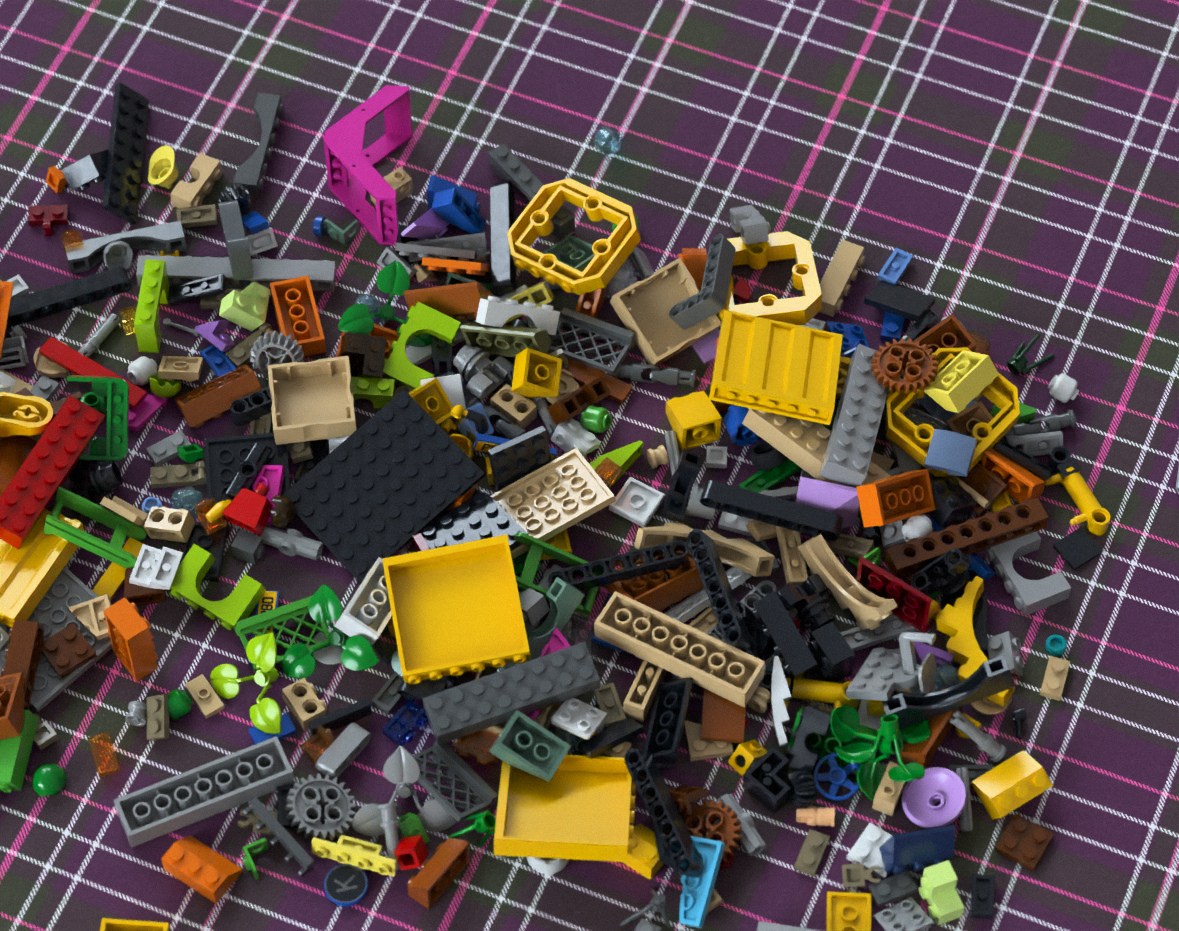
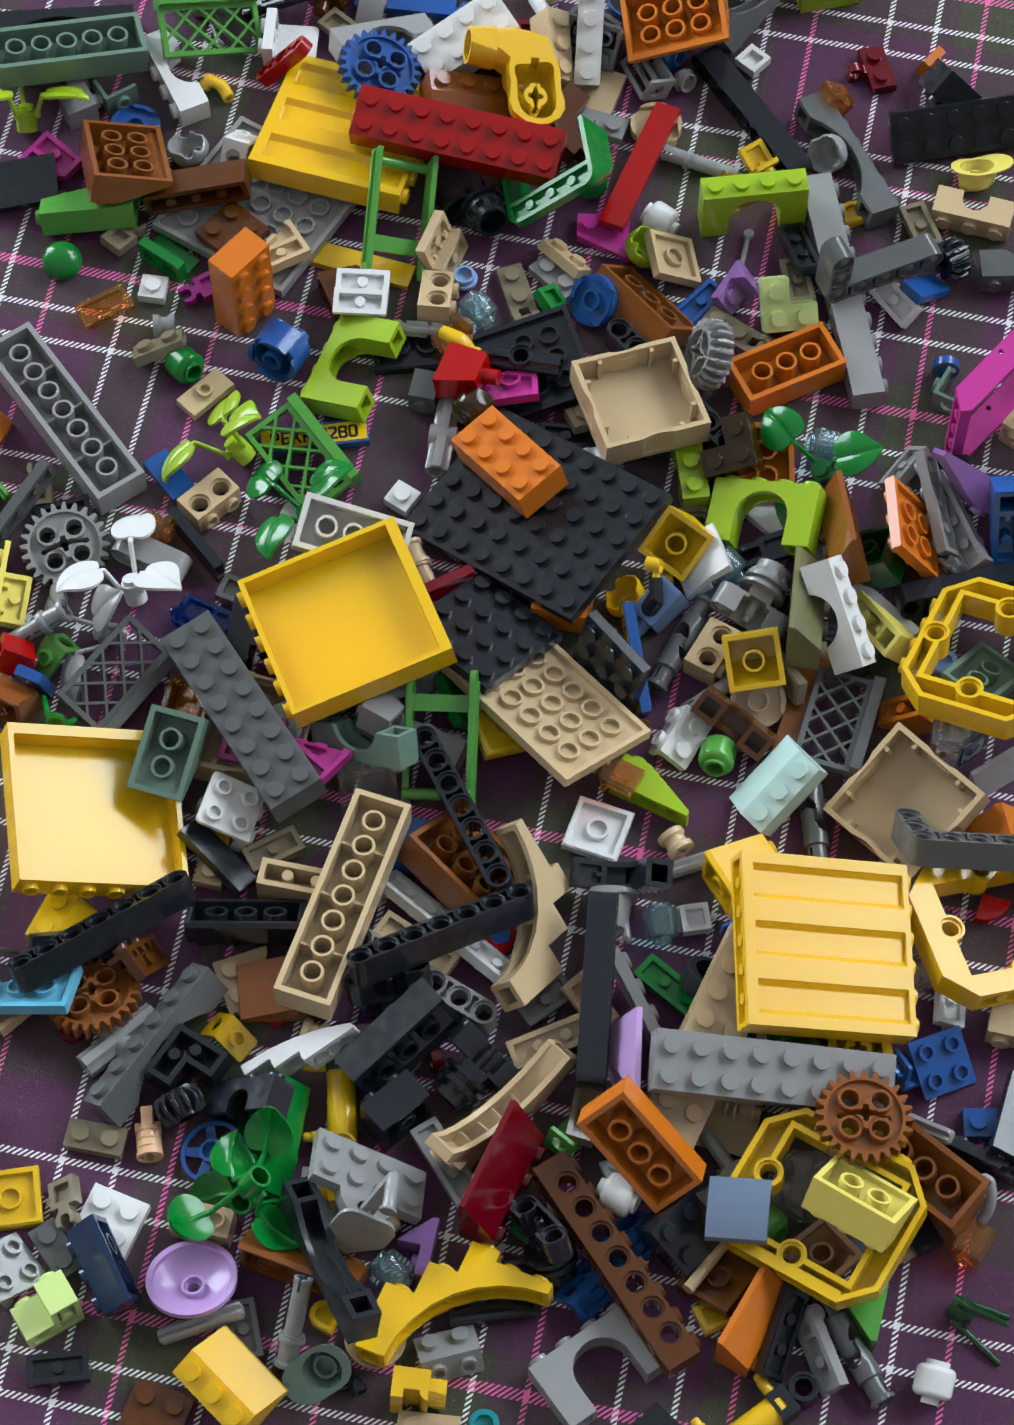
camera: 80 degrees right, 5 degrees up
(69, 704) = (168, 257): none -> green panel
(95, 719) = (153, 289): none -> white plate
(107, 301) = (757, 157): none -> yellow bracket
(107, 681) = (200, 289): none -> magenta plate
(150, 440) = (559, 254): none -> tan plate
(187, 633) = (279, 350): none -> blue brick
(193, 538) = (419, 328): none -> light grey axle
(203, 422) = (594, 300): none -> blue tile
(334, 578) = (402, 498): none -> white plate
(342, 489) = (509, 461): none -> orange brick
(363, 787) = (156, 577): none -> white plant
(438, 838) = (35, 679): none -> blue tile
(632, 385) = (777, 786): none -> light aqua slope
(717, 472) = (661, 923): none -> clear light blue head
(771, 817) = (119, 1087): none -> dark grey arch
(1010, 730) = (317, 1374): none -> sand green piece
(1033, 675) = (416, 1388): none -> yellow hips

